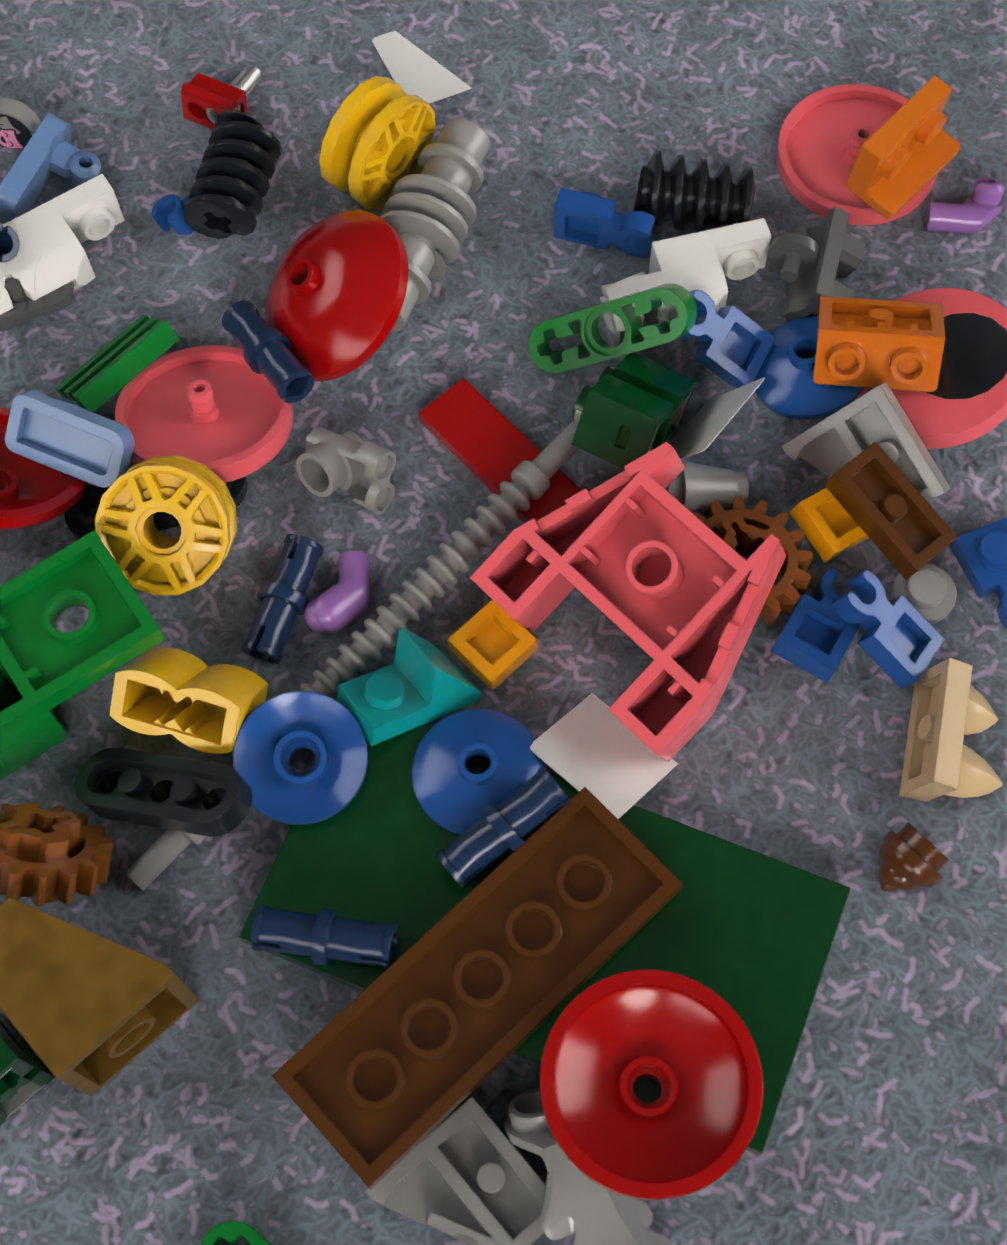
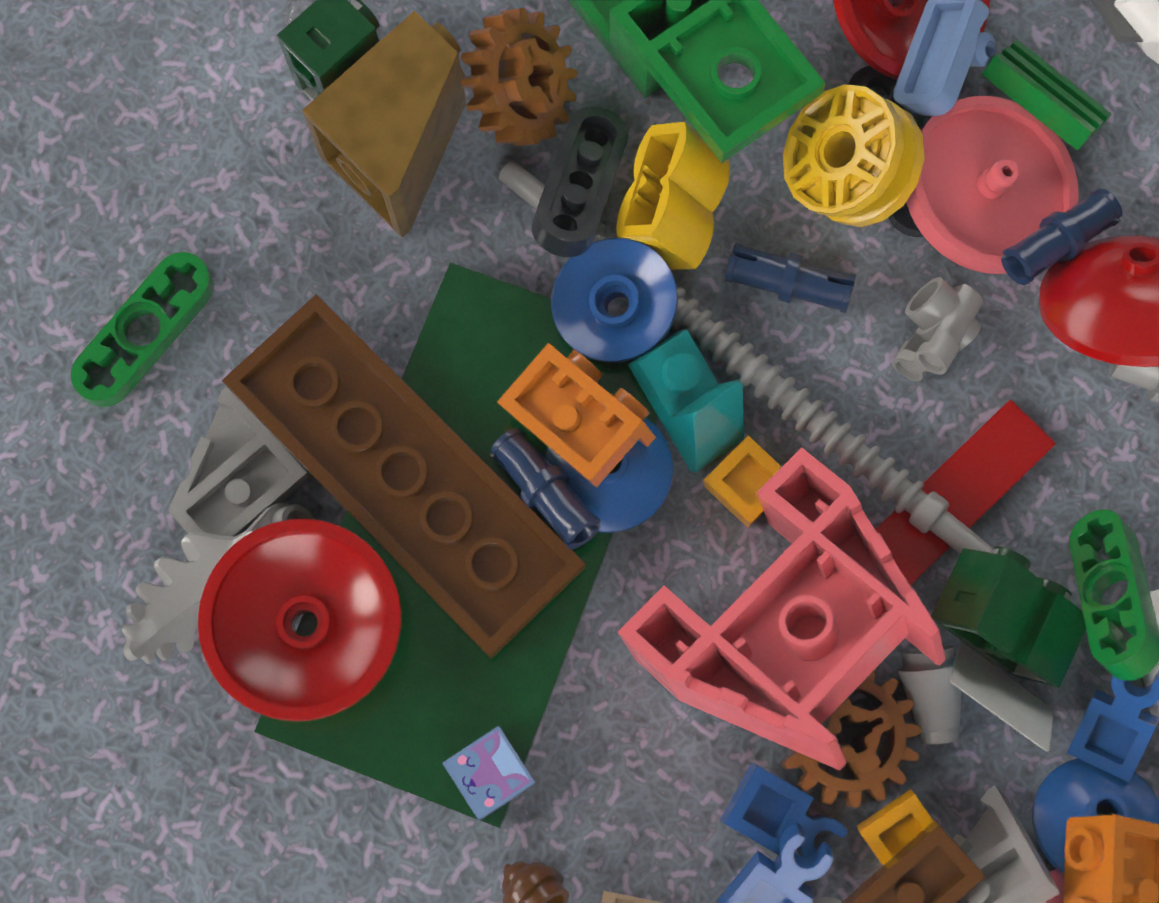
camera: 90 degrees right, 10 degrees up
(324, 936) = (442, 333): dark blue pin -> none
(345, 600) = (793, 340): medium lavender arm -> none
(427, 788) = (575, 415): none -> orange bracket
(600, 753) = (623, 579): white sticker -> none
(799, 892) = (489, 773): none -> tile

